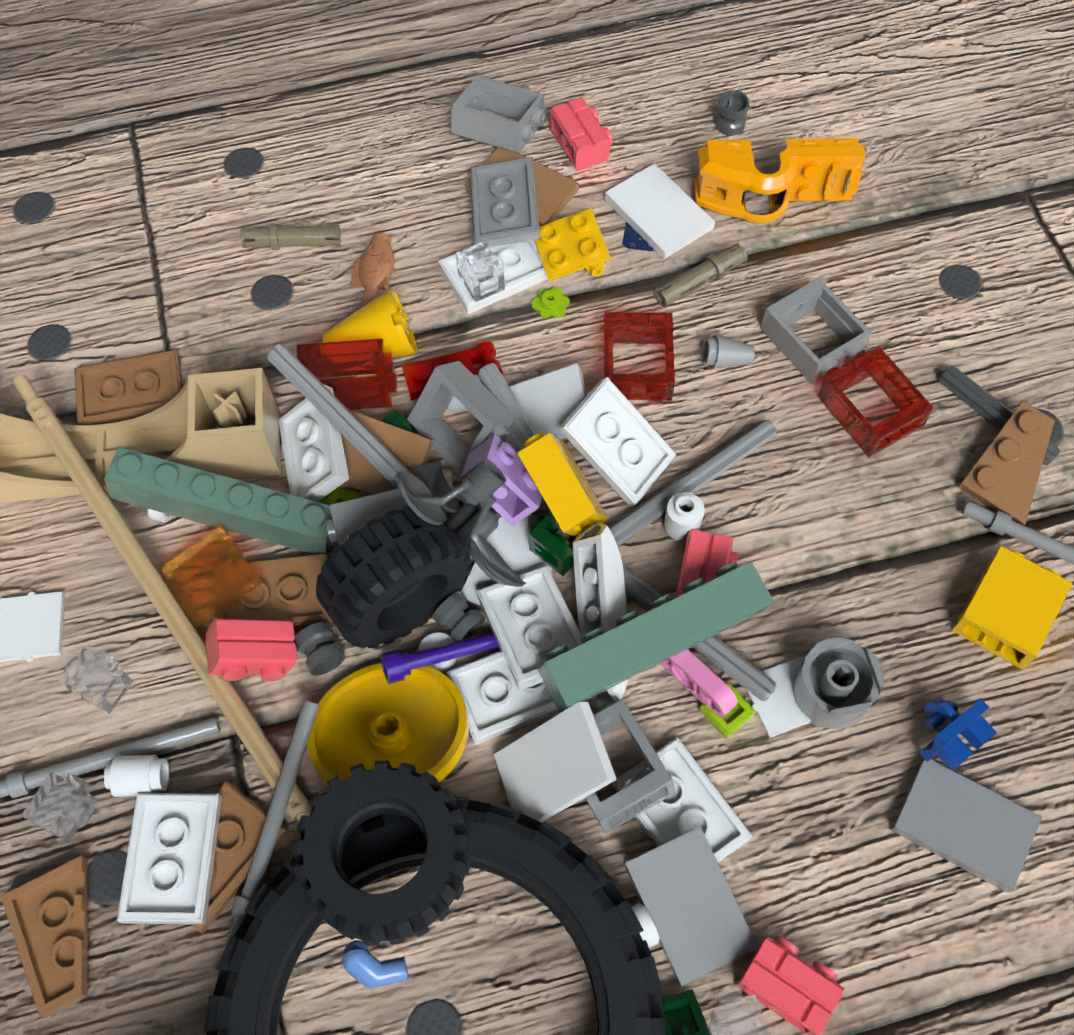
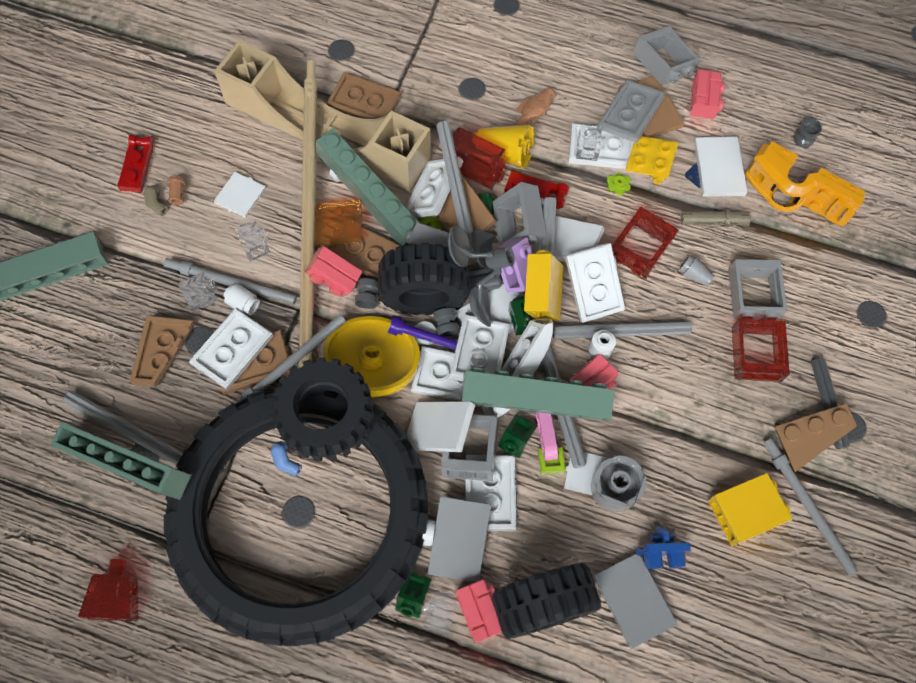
camera: 30 degrees right, 5 degrees up
(290, 236) = (504, 64): dark tan pin -> none
(662, 708) = (517, 435): none -> dark green bracket
(878, 908) = (546, 600): none -> black tyre

